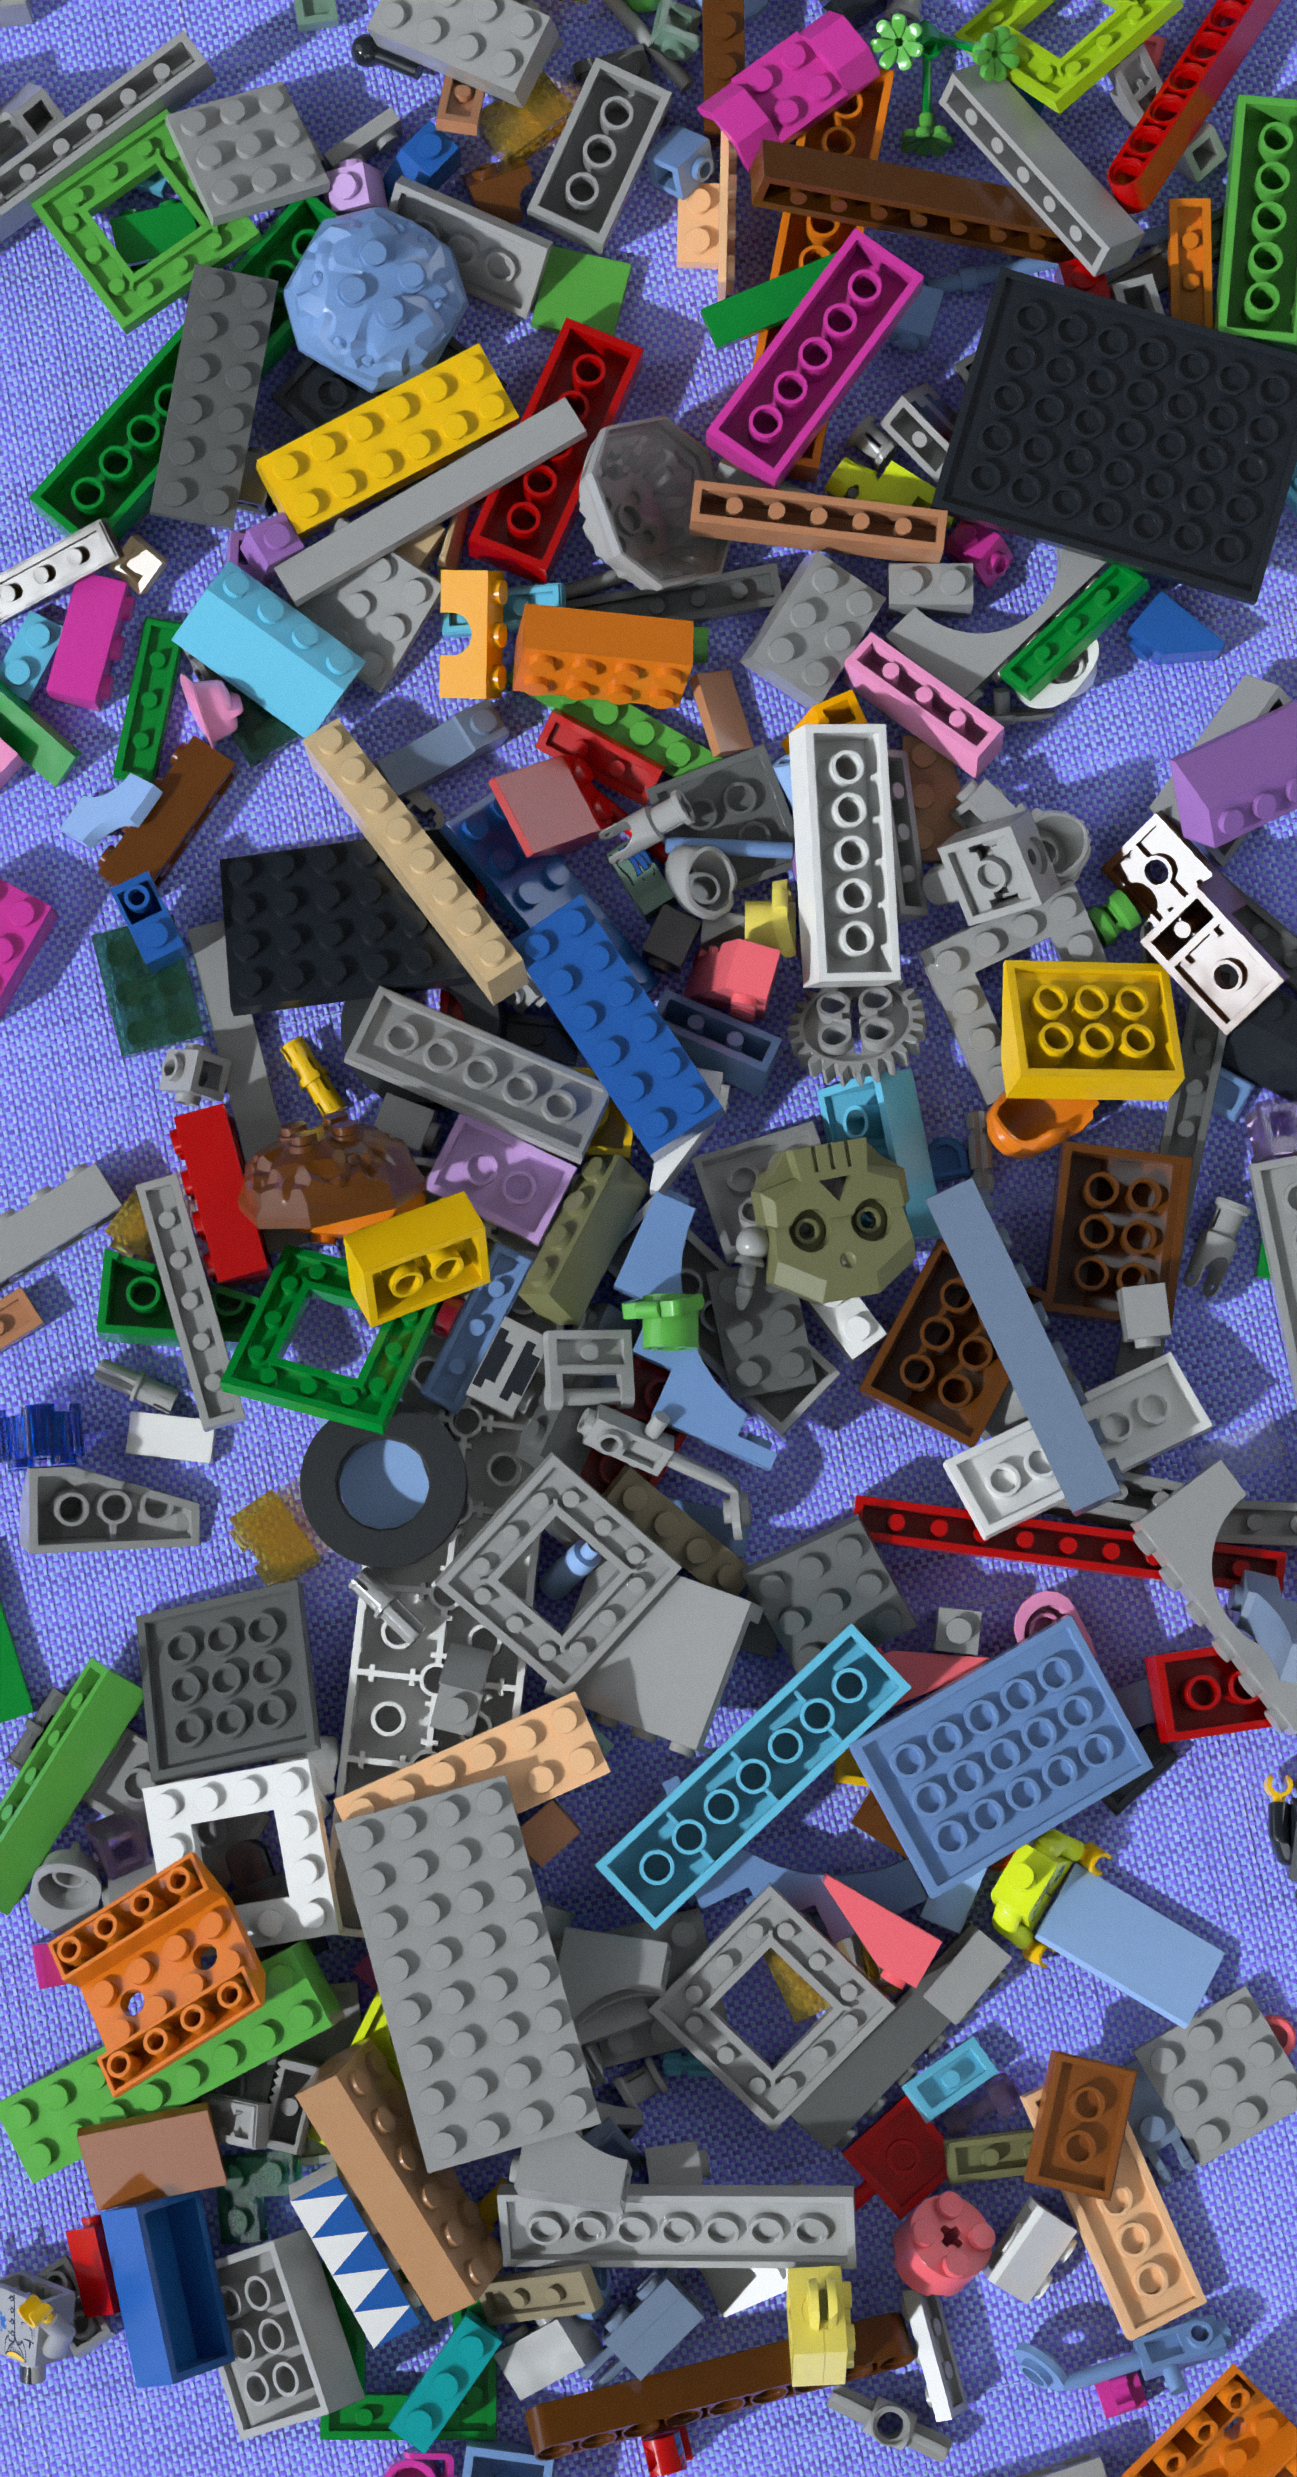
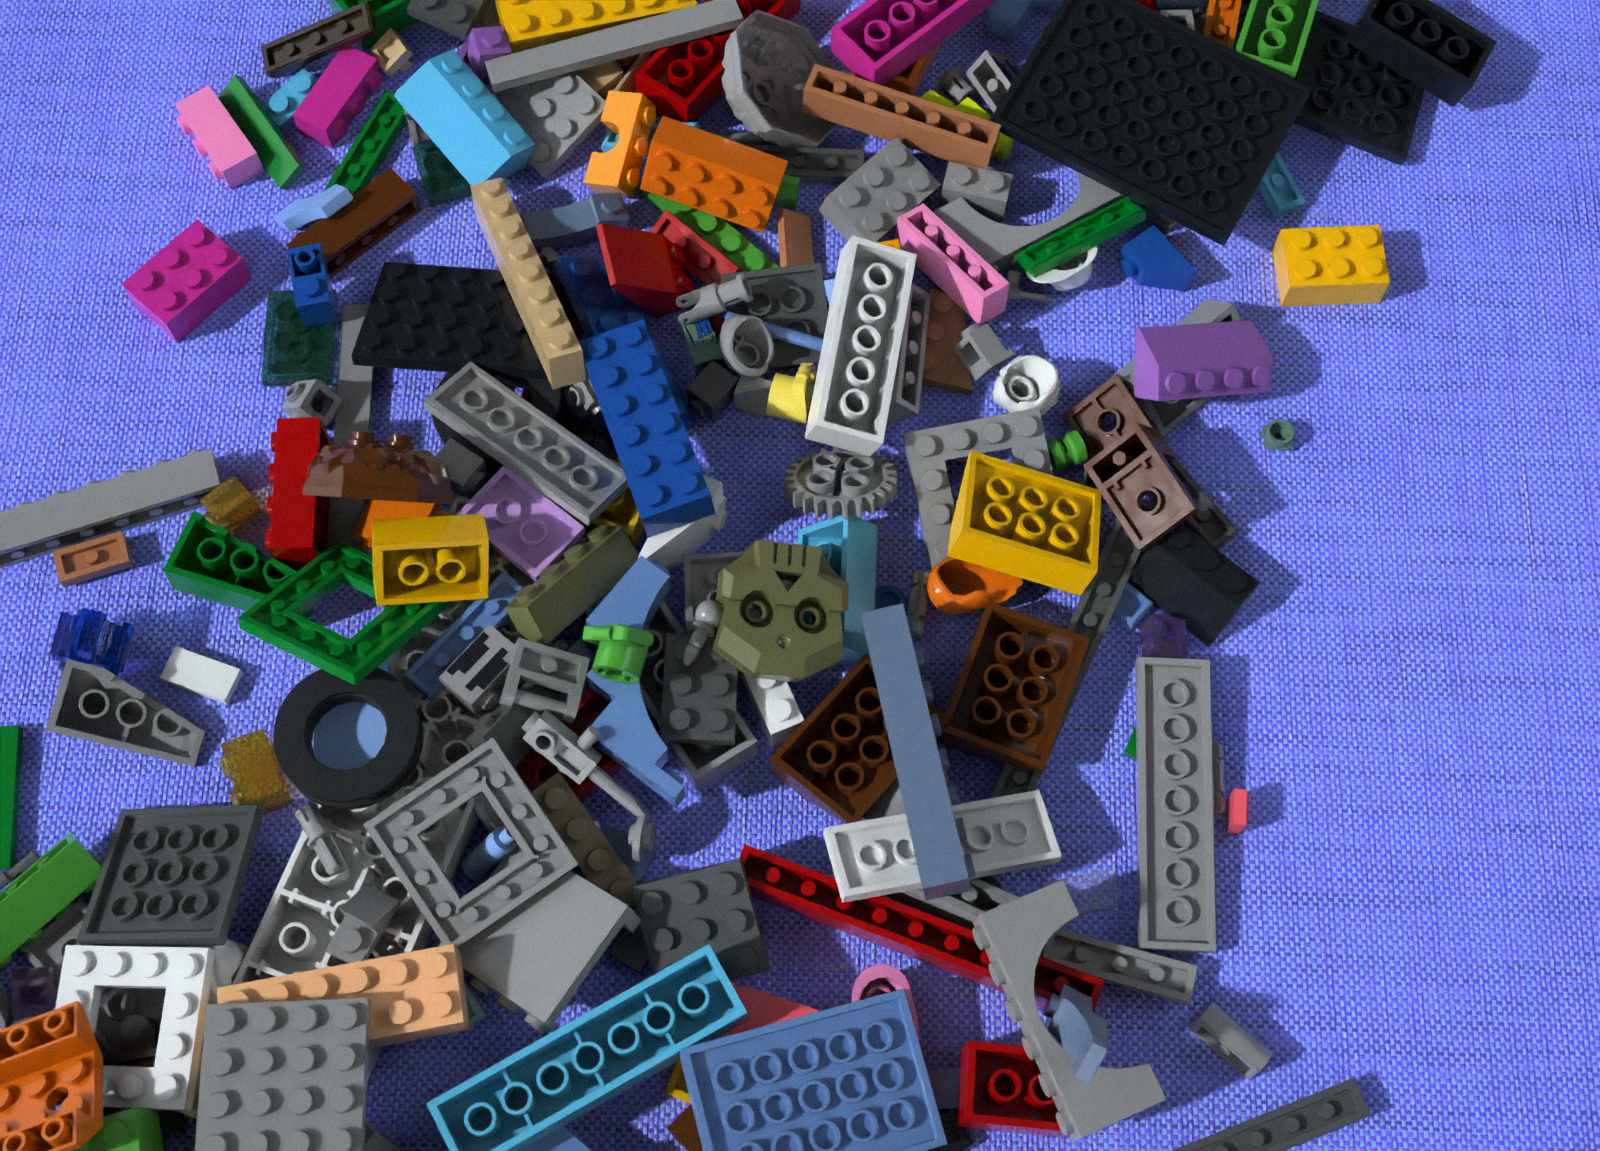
camera: 10 degrees right, 15 degrees down
(137, 1385) = (188, 628): light grey axle -> none
(189, 1300) = (242, 560): light grey plate -> none
(212, 707) = (411, 150): bright pink piece -> none
(313, 1076) = (401, 419): yellow pin -> none
(447, 1316) = (445, 617): dark red tile -> none
(548, 1832) = (399, 1072): nougat brick -> none
(721, 1042) = (745, 481): medium blue brick -> none
(735, 978) = (758, 424): coral wedge -> none
(956, 1631) = (803, 983): light grey brick -> none
(981, 547) = (1027, 176): dark pink bracket -> none
(993, 869) = (976, 384): light grey brick -> none
(1144, 1314) = (1023, 748): light grey brick -> none
(1216, 1246) = (1097, 718): light grey piece -> none

